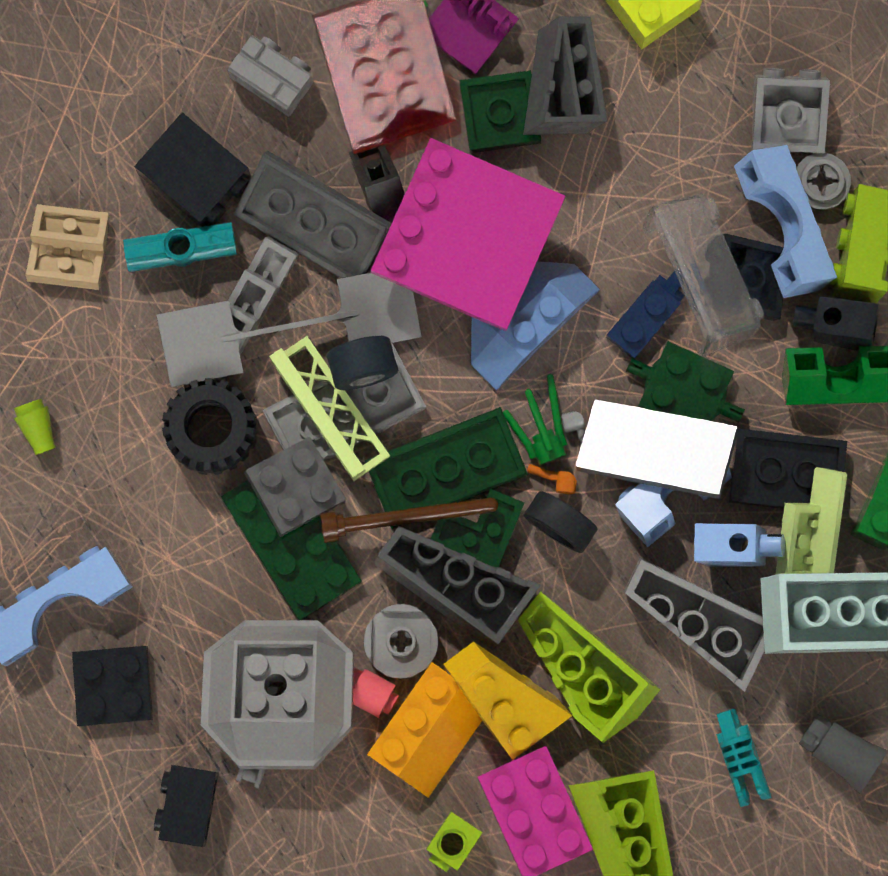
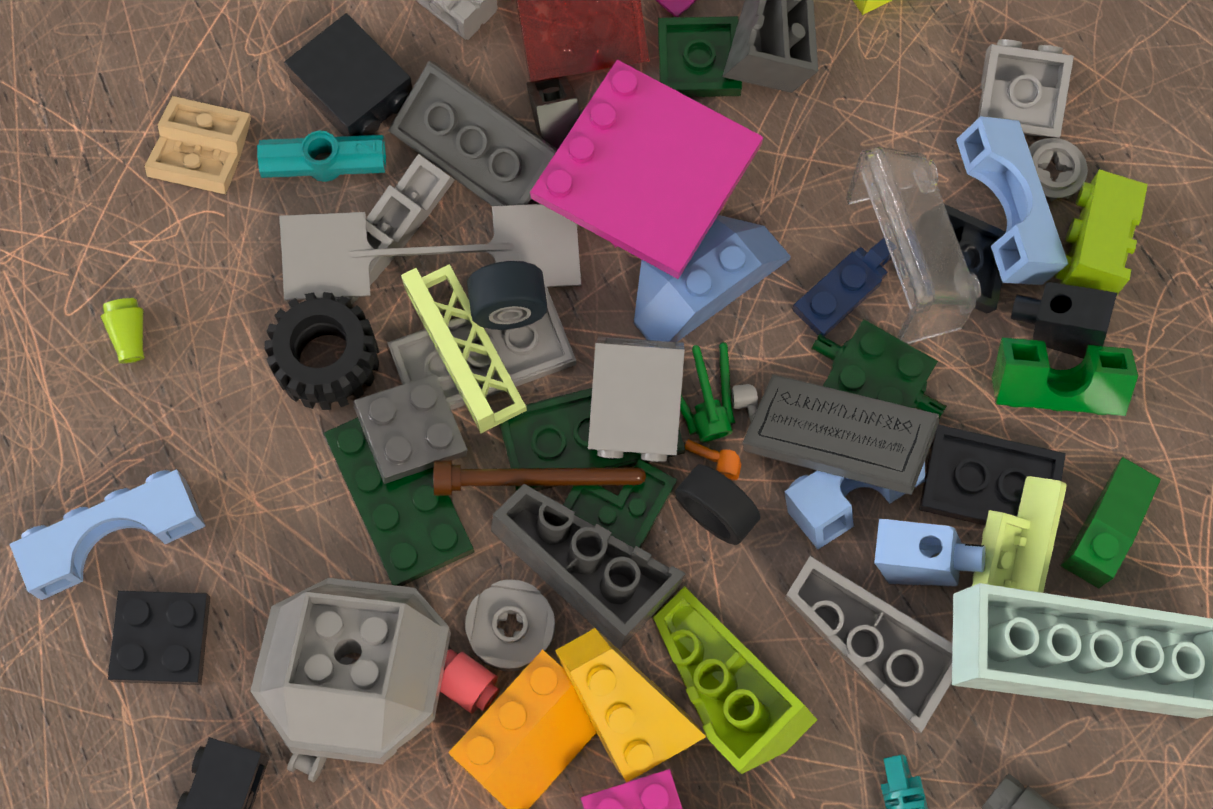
camera: 10 degrees right, 10 degrees down
(482, 436) = (636, 397): none -> light grey slope

